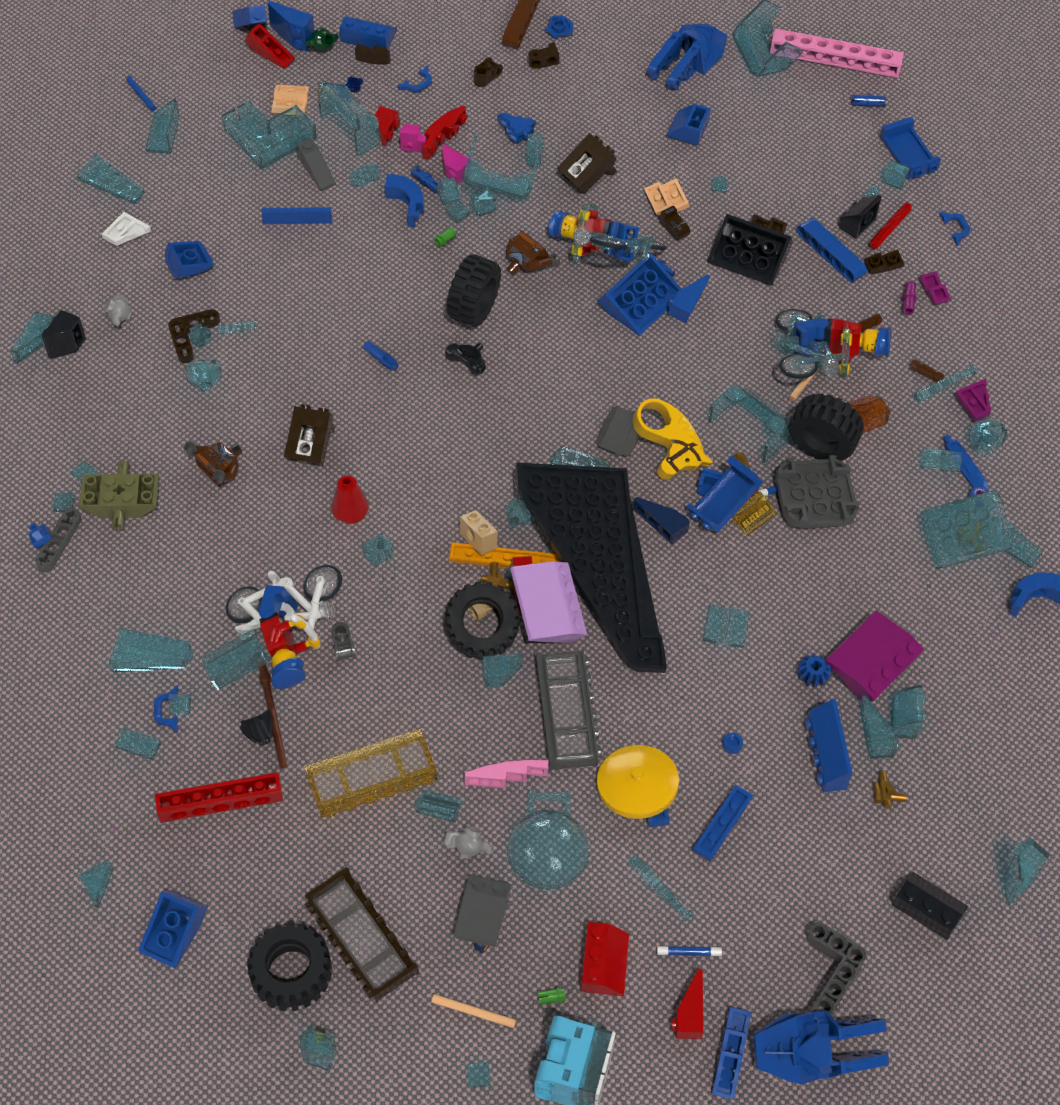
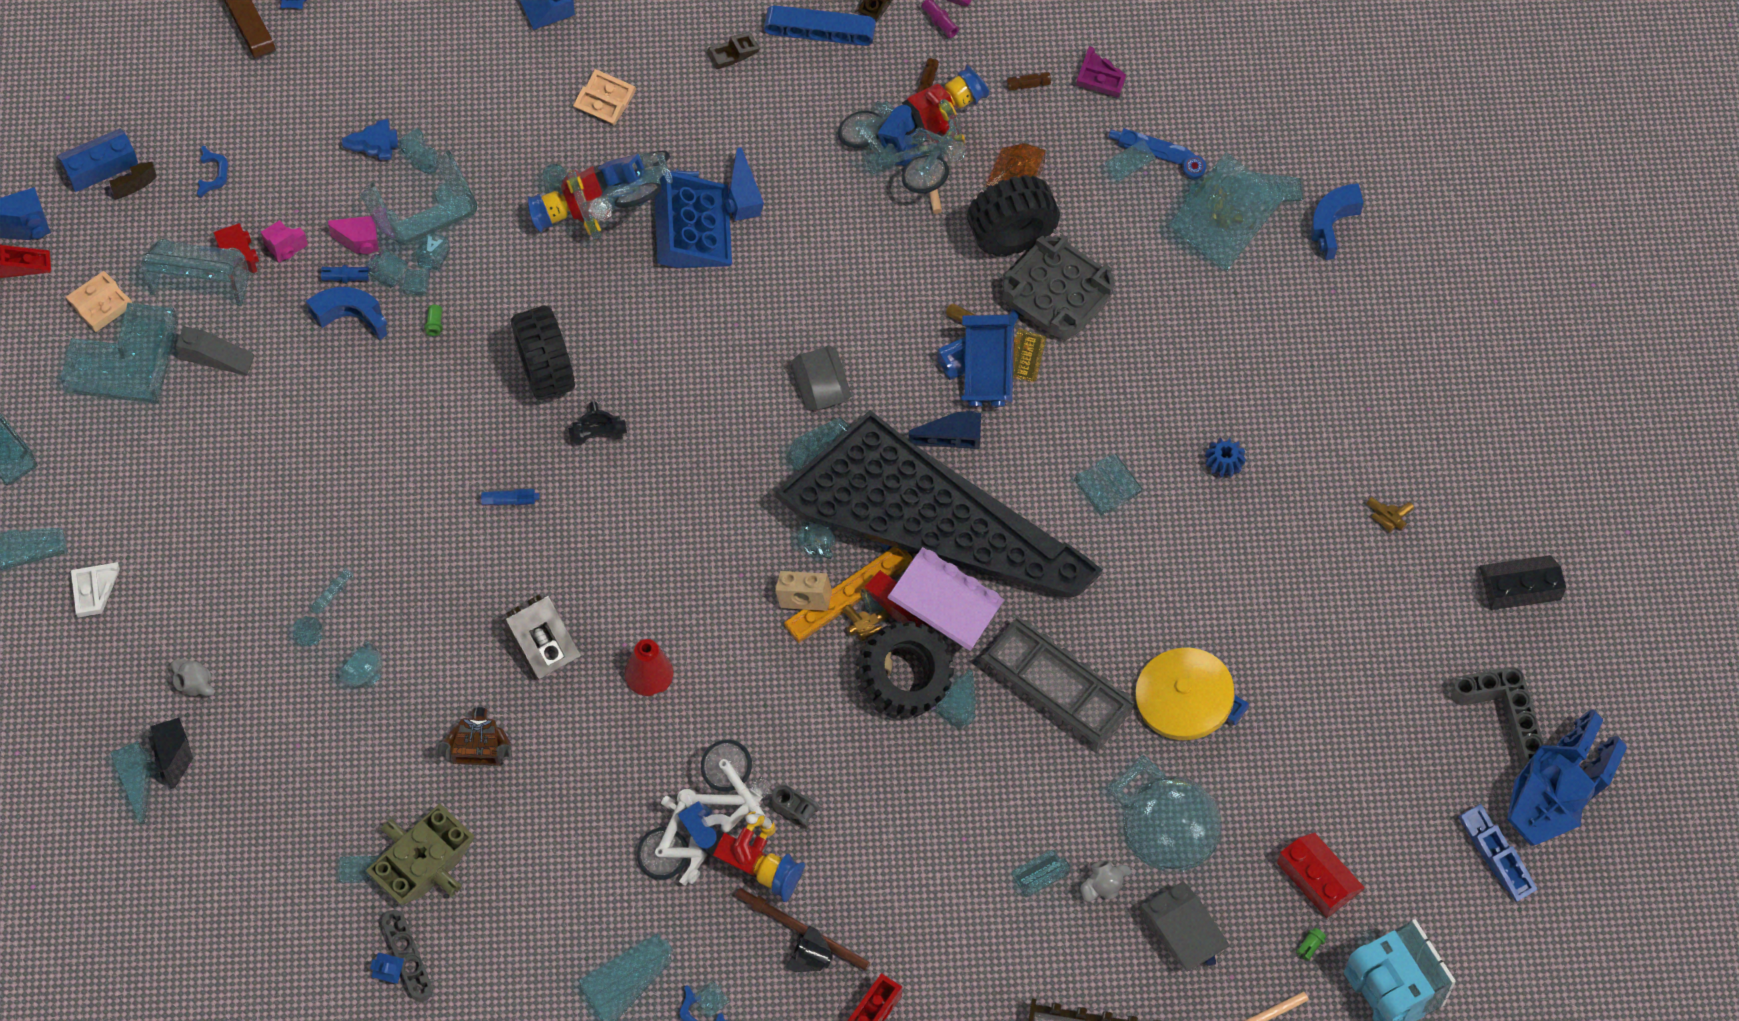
camera: 45 degrees left, 5 degrees up
(63, 501) = (366, 915): clear light blue tile -> none
(184, 325) = (280, 636): dark brown beam -> none
(187, 258) = (200, 564): blue slope -> none
(235, 659) = (713, 909): clear light blue slope -> none
(312, 215) = (258, 422): blue tile -> none
(321, 40) = (61, 206): dark green piece -> none
(354, 84) = (148, 235): clear blue plate -> none
(365, 175) = (280, 322): clear light blue beam -> none
(371, 773) = (953, 900): clear yellow window -> none
(376, 556) = (730, 699): clear light blue brick -> none
(442, 128) = (303, 204): red slope -> none
(486, 72) = (276, 105): dark brown piece -> none
(497, 774) = (1065, 794): bright pink slope -> none
(528, 254) = (538, 270): reddish brown torso -> none
(544, 57) = (317, 40): dark brown leg -> none
(590, 169) = (496, 103): dark brown brick -> none
(649, 876) = (1269, 767): clear light blue piece -> none
(674, 223) = (644, 120): dark brown leg -> none
(678, 435) = (883, 338): yellow animal -> none
(689, 951) = (1376, 801): blue bar -> none
(689, 1015) = (1434, 851): red slope -> none
(720, 184) = (641, 35): clear light blue plate -> none
(723, 823) = (1291, 665): blue plate -> none
(732, 743) = (1223, 587): blue tile -> none
(750, 249) = (745, 89): black slope -> none
(758, 408) = (932, 245): clear light blue windscreen -> none
(829, 747) = (1310, 516): blue slope -> none
(874, 656) = (1265, 400): magenta slope -> none
(878, 732) = (1331, 466): clear light blue slope -> none
(908, 712) = (1341, 426): clear light blue slope -> none
(937, 387) = (1053, 92): clear light blue piece -> none
(987, 435) = (1145, 102): clear light blue cylinder -> none
(1023, 868) = (1570, 484): clear light blue slope -> none

